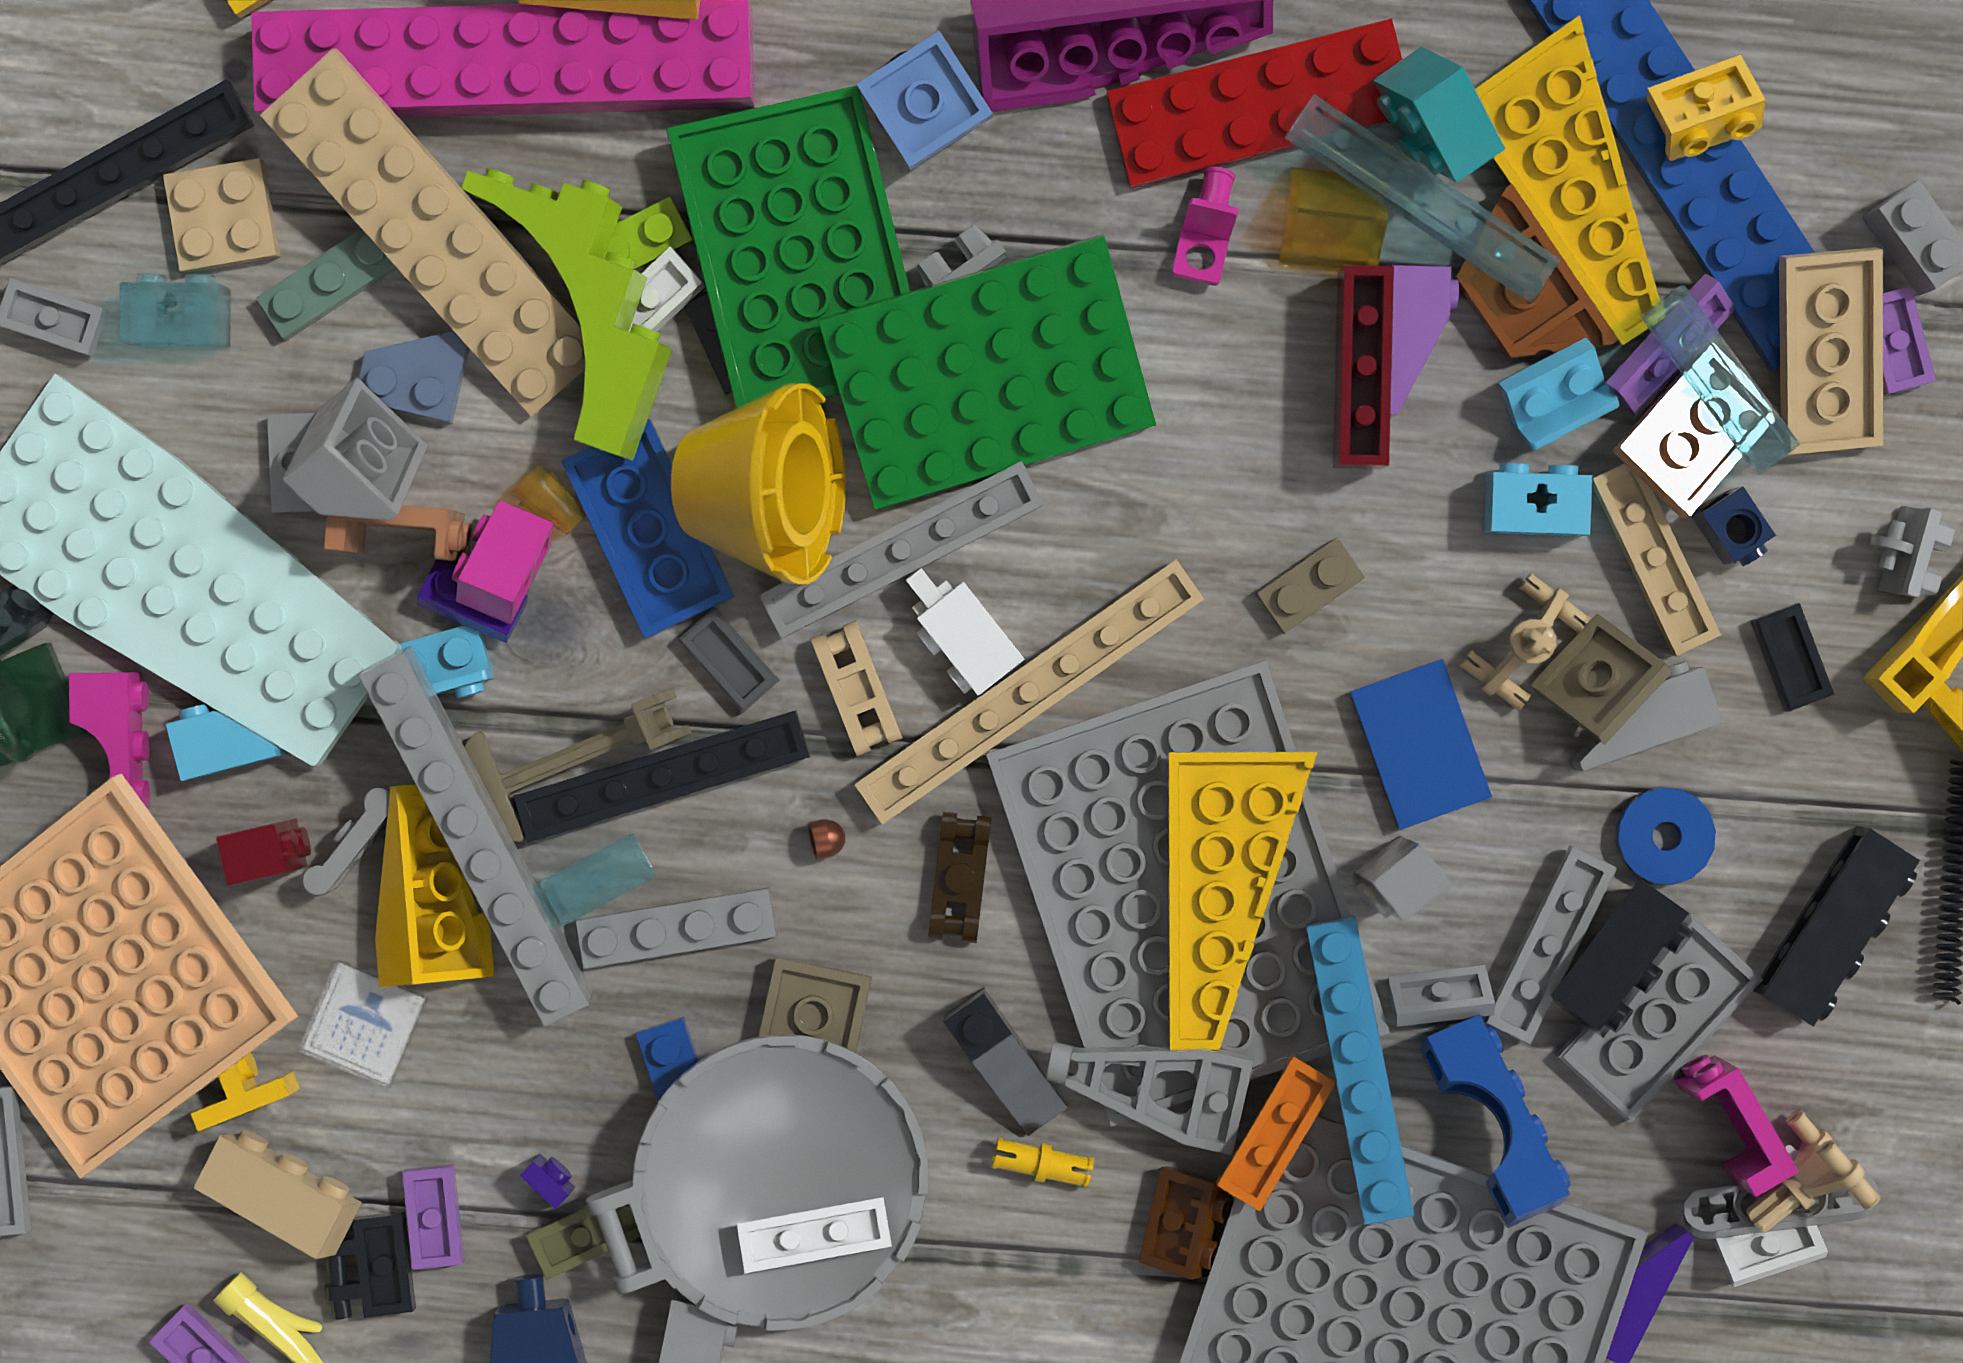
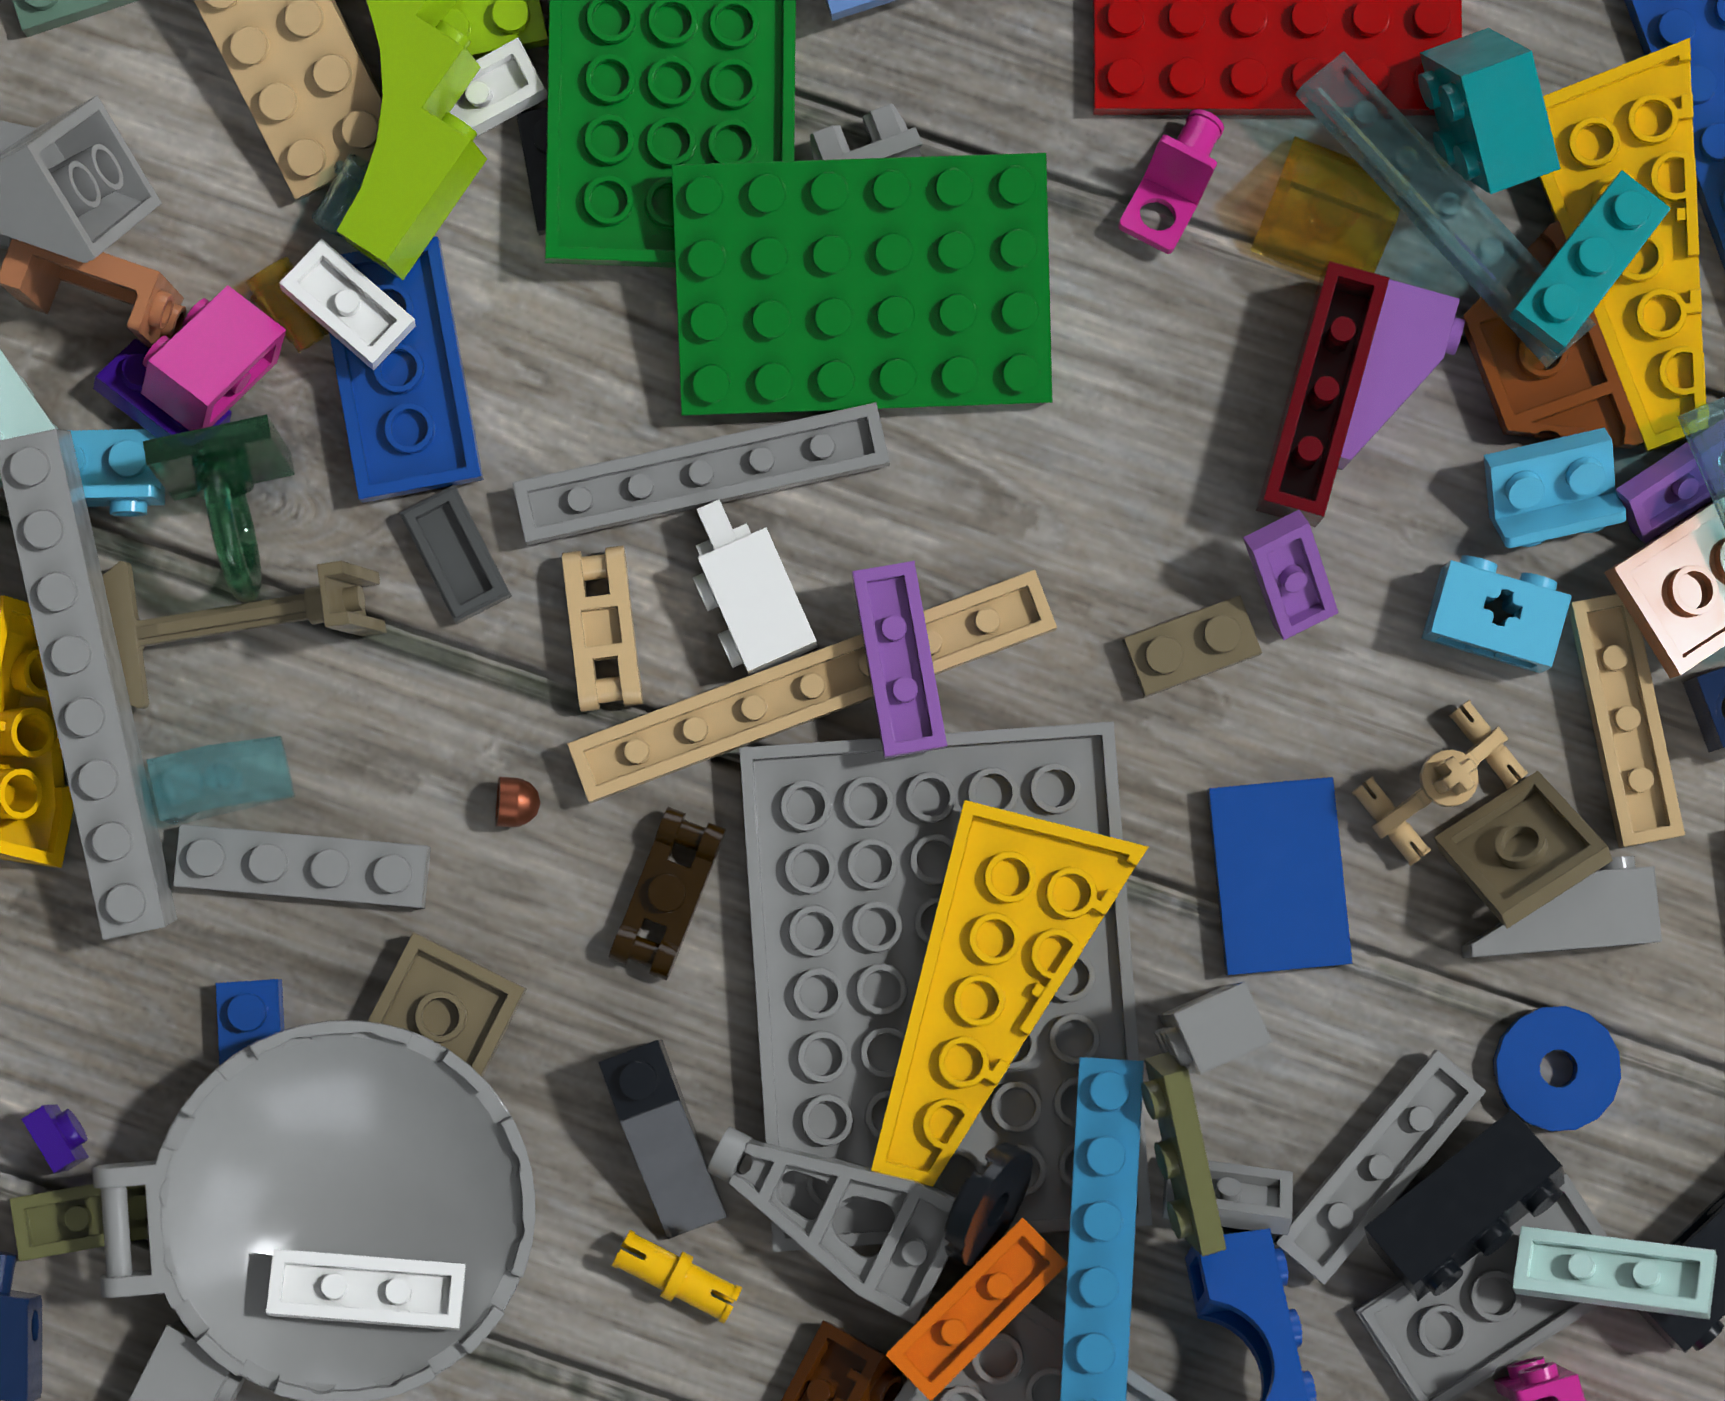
camera: 15 degrees right, 5 degrees down
(418, 375) = (174, 116): sand blue wing -> none
(535, 646) = (221, 468): none -> clear green tile
(568, 404) = (340, 193): none -> clear light blue pin
(596, 491) = (347, 304): none -> white plate
(662, 776) = (334, 673): black plate -> none
(765, 483) = (556, 343): yellow cone -> none
(1091, 657) = (899, 659): none -> medium lavender plate
(1265, 1054) = (988, 1203): none -> black tile
(1373, 514) = (1291, 574): none -> medium lavender plate
(1402, 980) = (1182, 1154): none -> olive plate
(1544, 213) = (1589, 262): none -> teal plate
(1747, 981) = (1615, 1272): none -> light aqua plate

